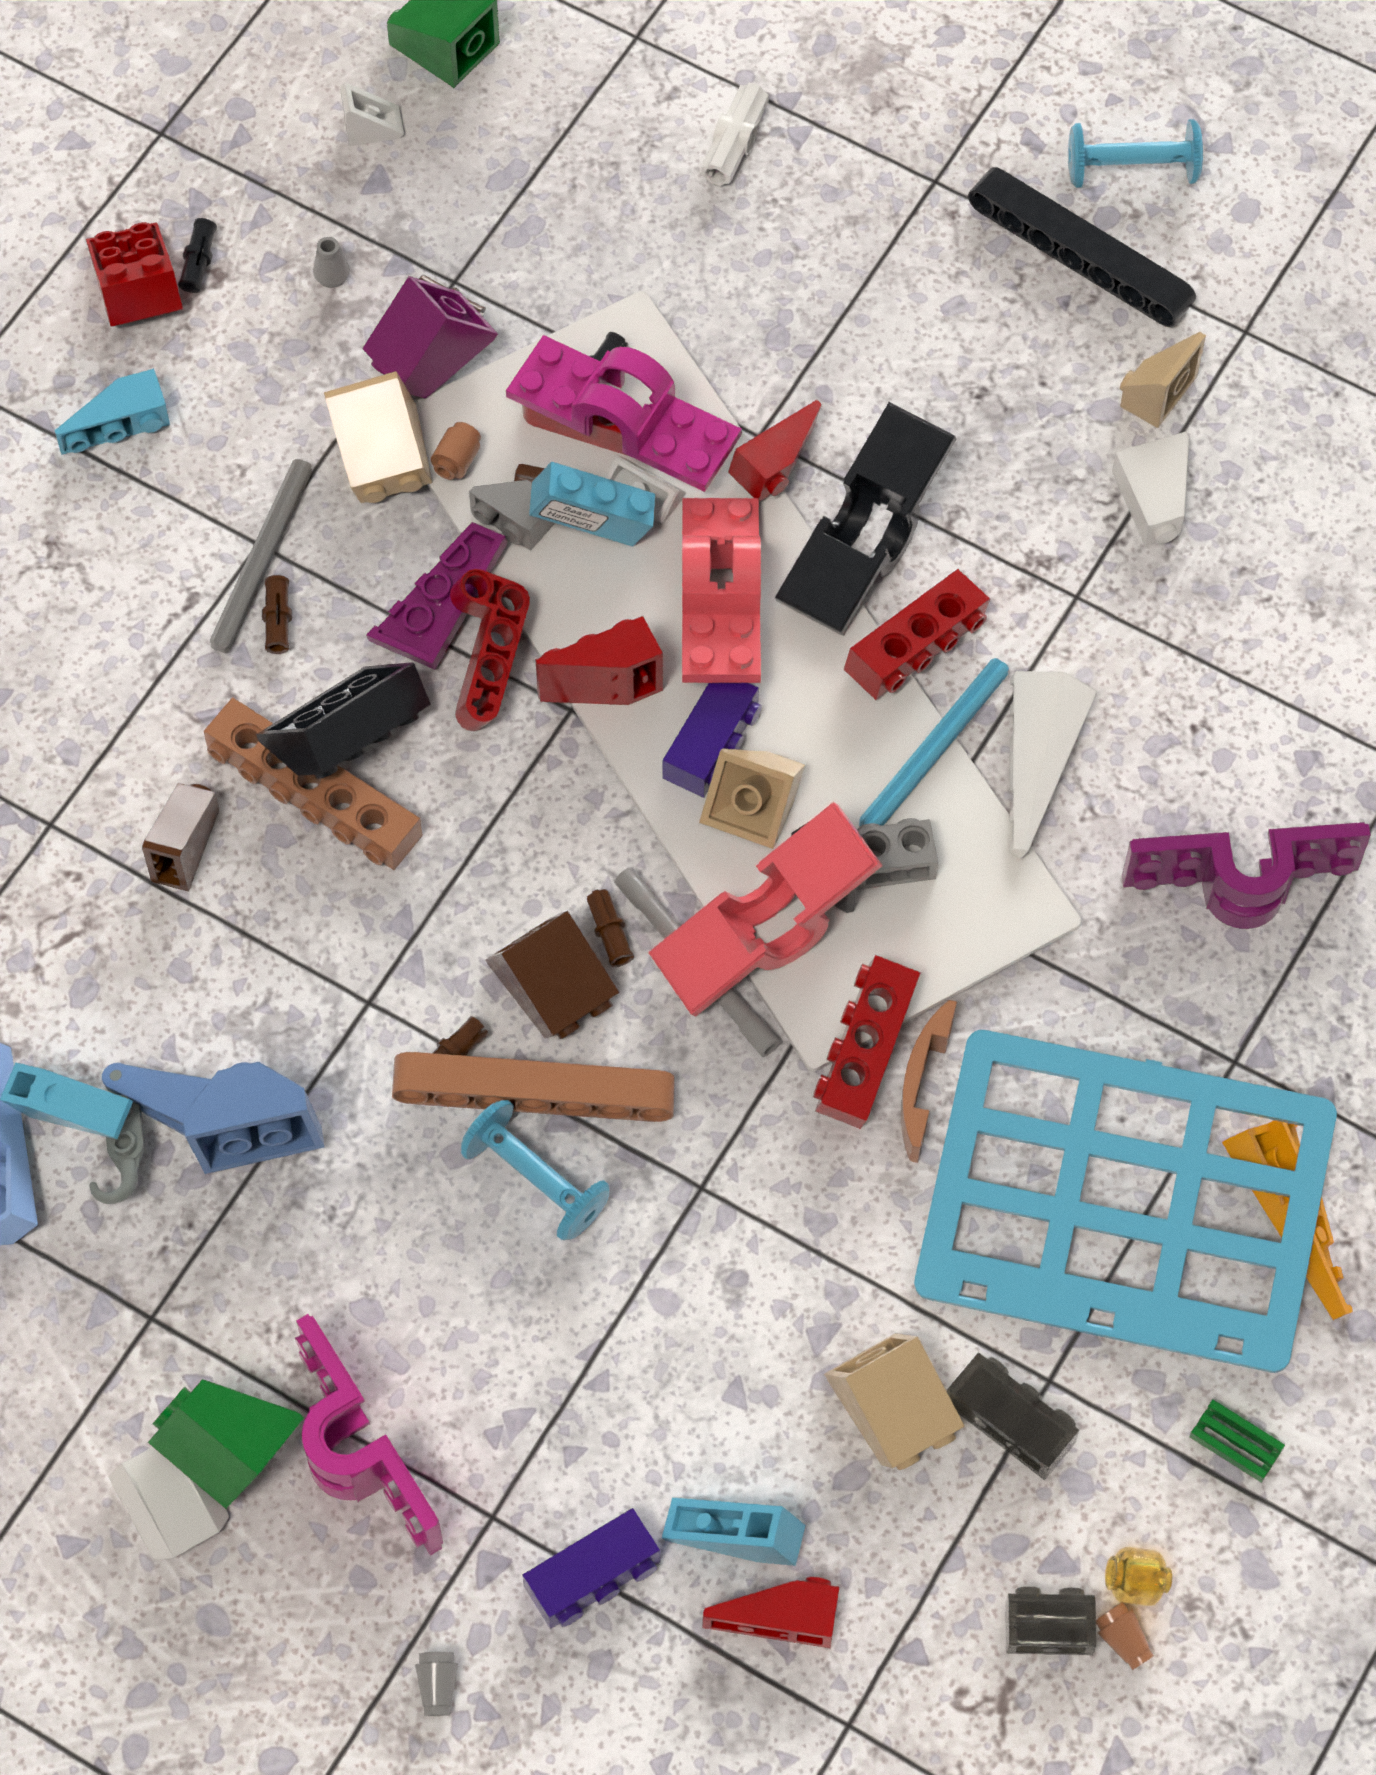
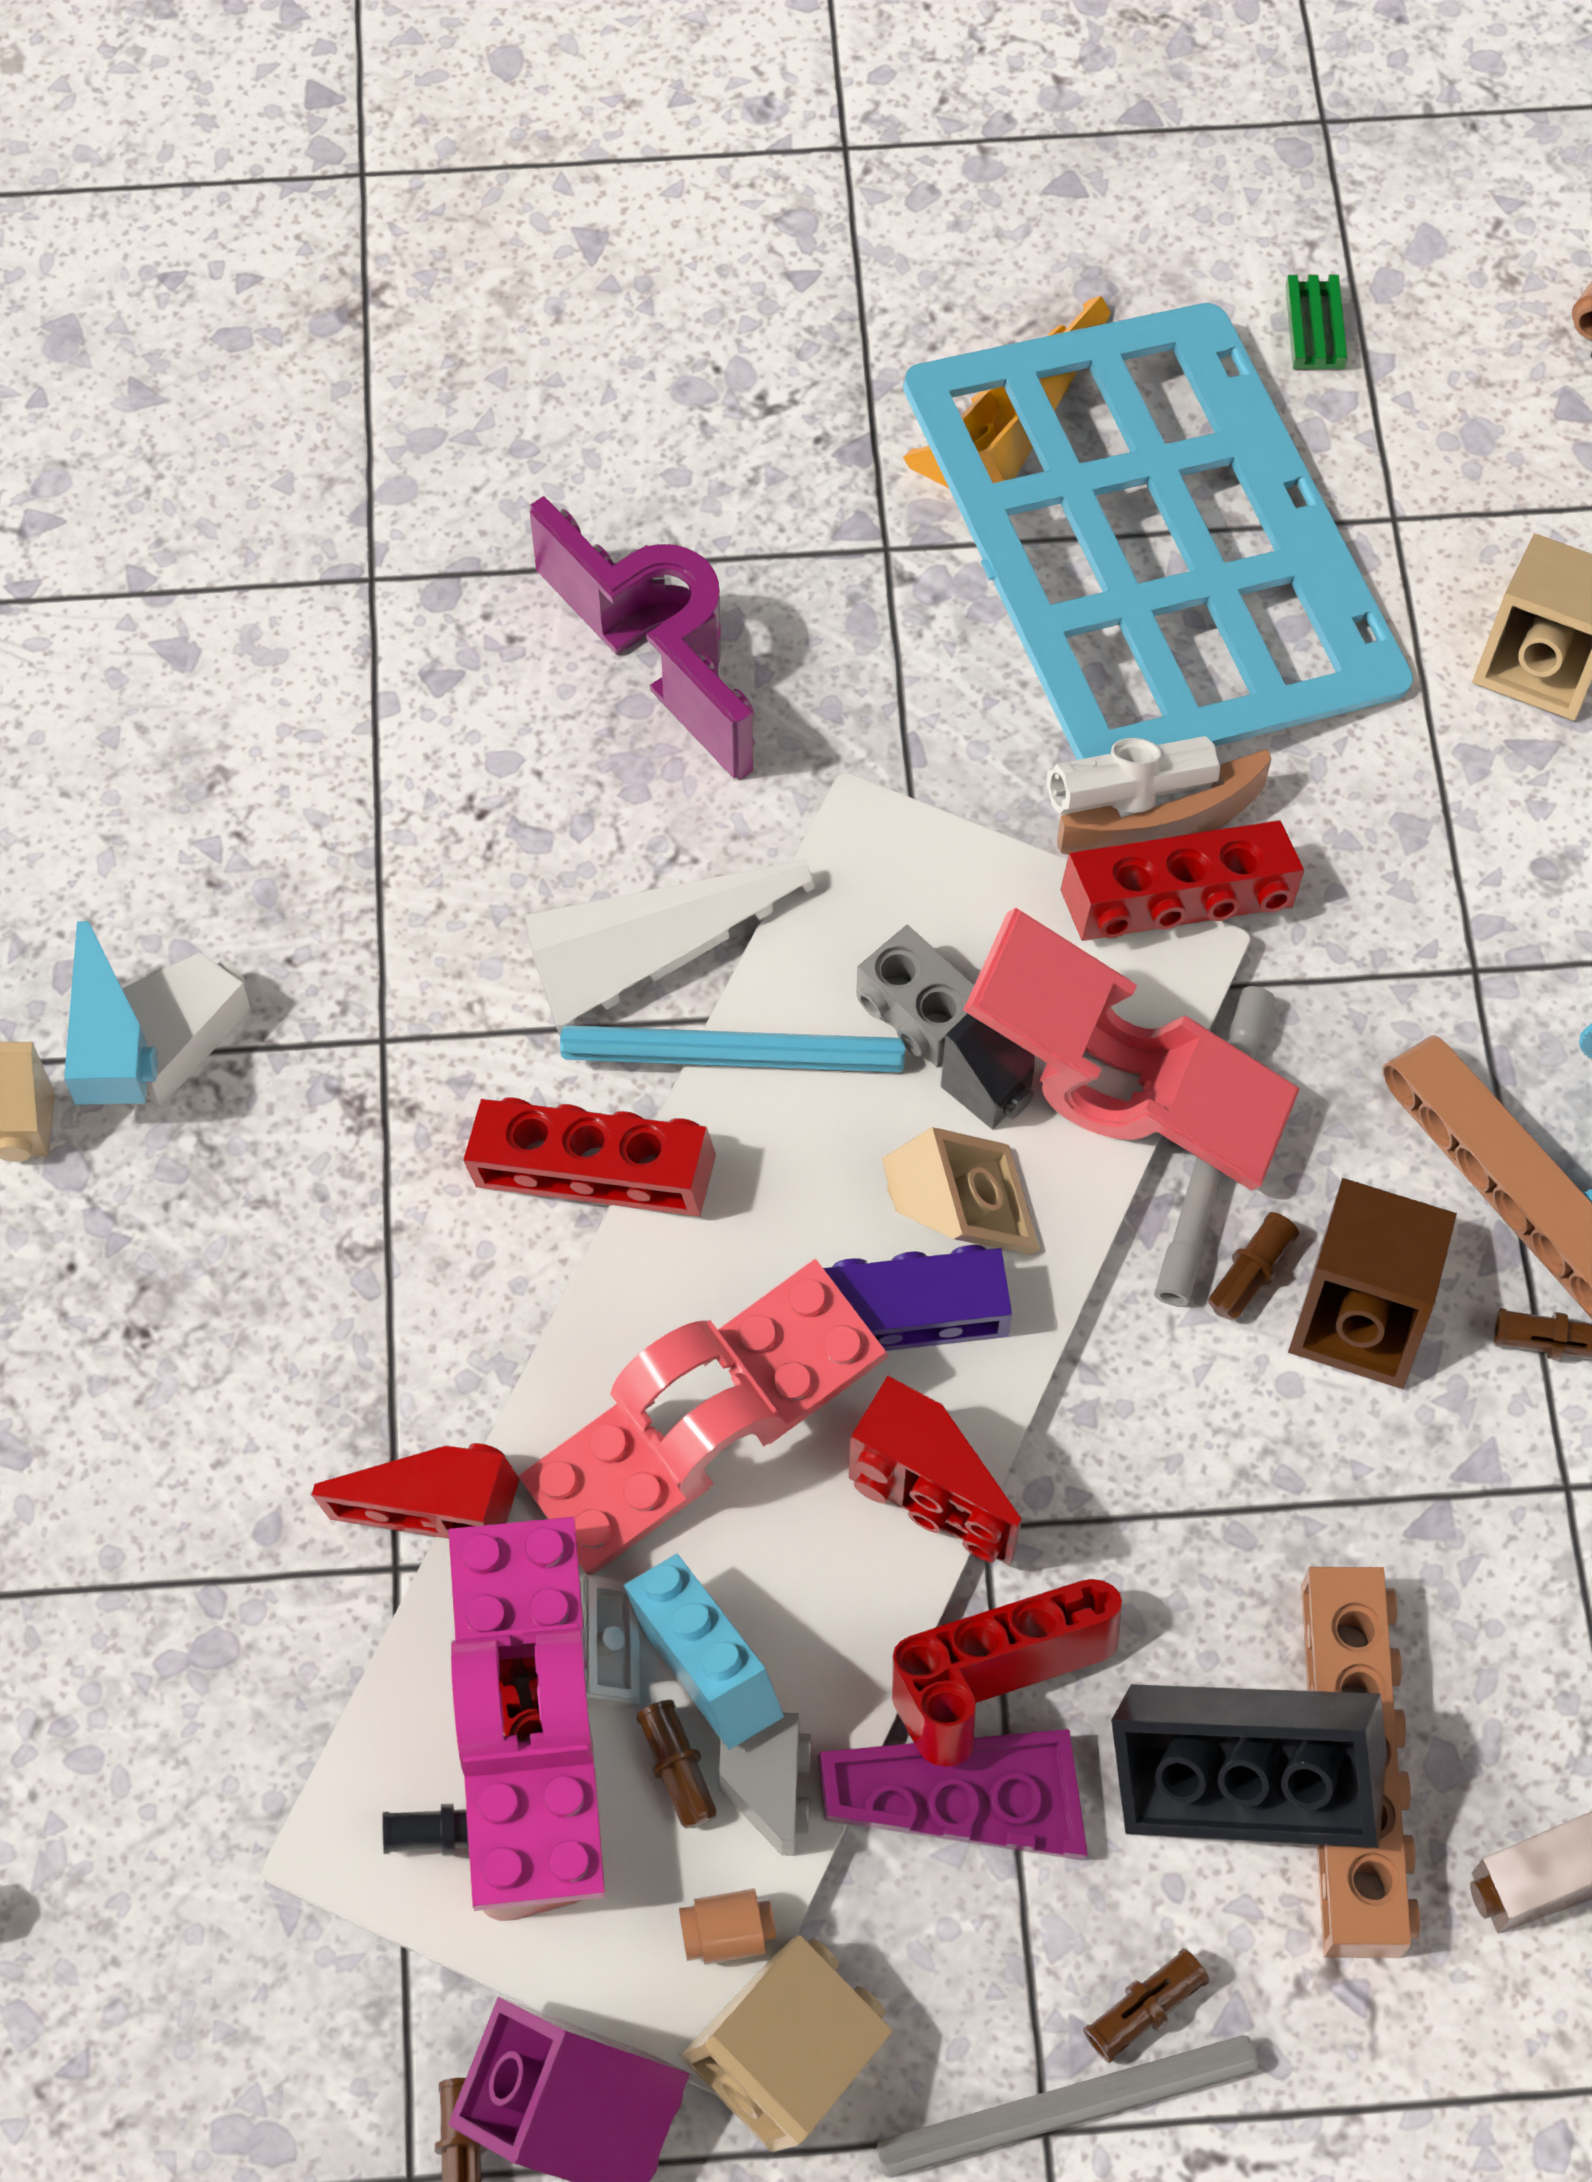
camera: 125 degrees left, 0 degrees up
(891, 470) = (560, 1294): black piece -> none
(943, 1071) = (1133, 775): none -> white piece
(1013, 1415) = (1472, 513): clear smoke brick -> none
(1138, 1576) = (1537, 318): clear yellow head -> none
(1159, 436) = (104, 1041): none -> medium azure slope

